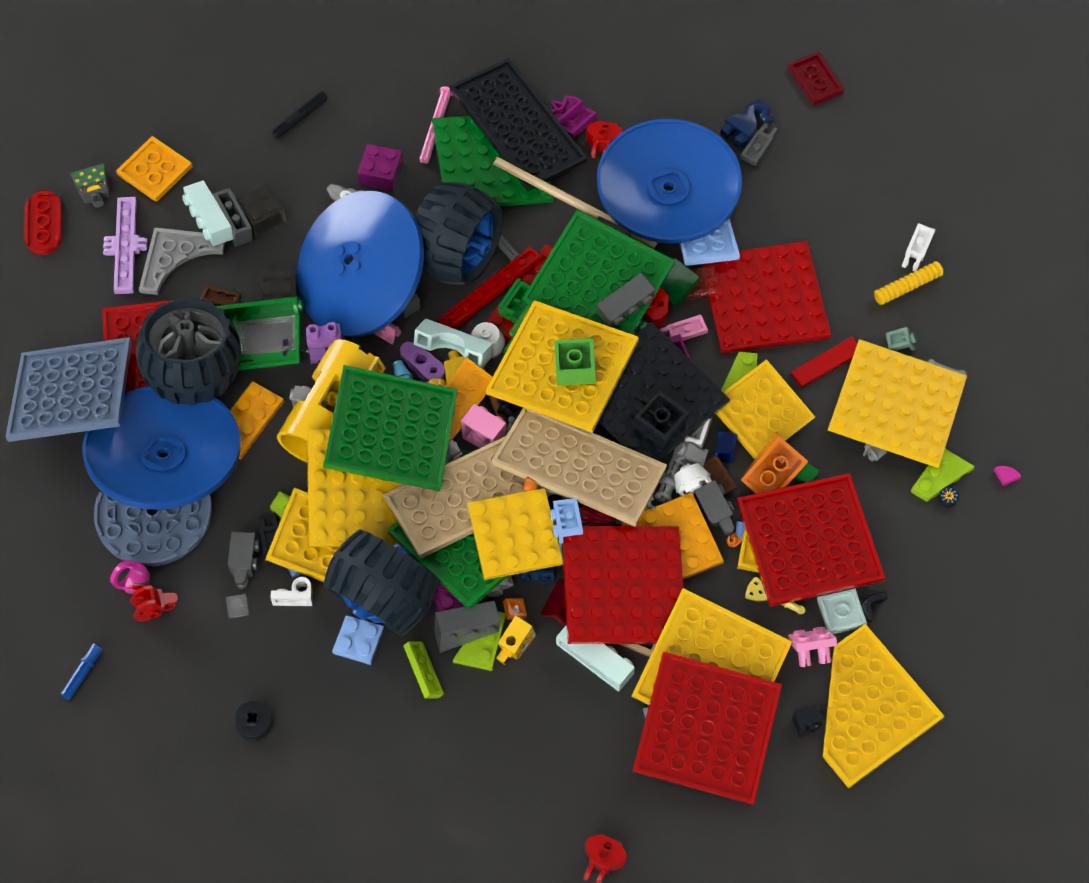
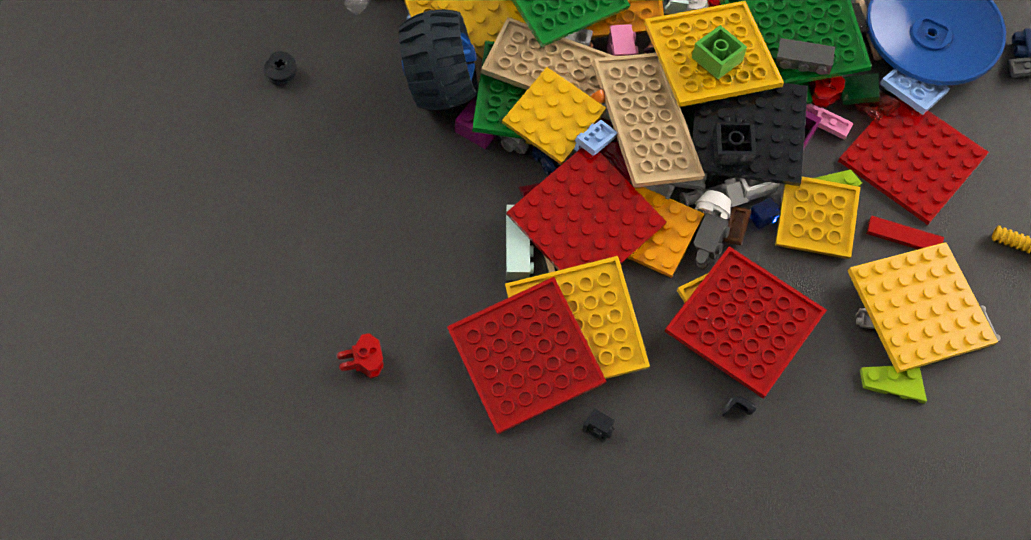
camera: 45 degrees right, 0 degrees up
(283, 597) = (389, 27): white plate -> none
(358, 640) = (393, 90): light blue plate -> none
(423, 670) = (408, 142): lime plate -> none
(464, 625) = (458, 139): dark grey wedge -> none
(481, 652) = (464, 165): lime wing -> none
(514, 607) = (506, 166): orange tile -> none
(519, 633) = (481, 181): yellow torso -> none
(736, 538) = (697, 272): arm -> none
(754, 589) = (685, 358): light yellow piece -> none
(773, 466) = (781, 254): orange slope -> none
(807, 474) = (800, 283): green tile -> none
(817, 639) = (660, 376): bright pink plate -> none
(841, 611) = (711, 389): light aqua tile -> none
(871, 707) = (651, 465): yellow plate -> none
(901, 339) = (978, 272): sand green bracket -> none
(948, 496) = (882, 400): tile -> none
(1006, 474) = (945, 431): dark pink tile -> none

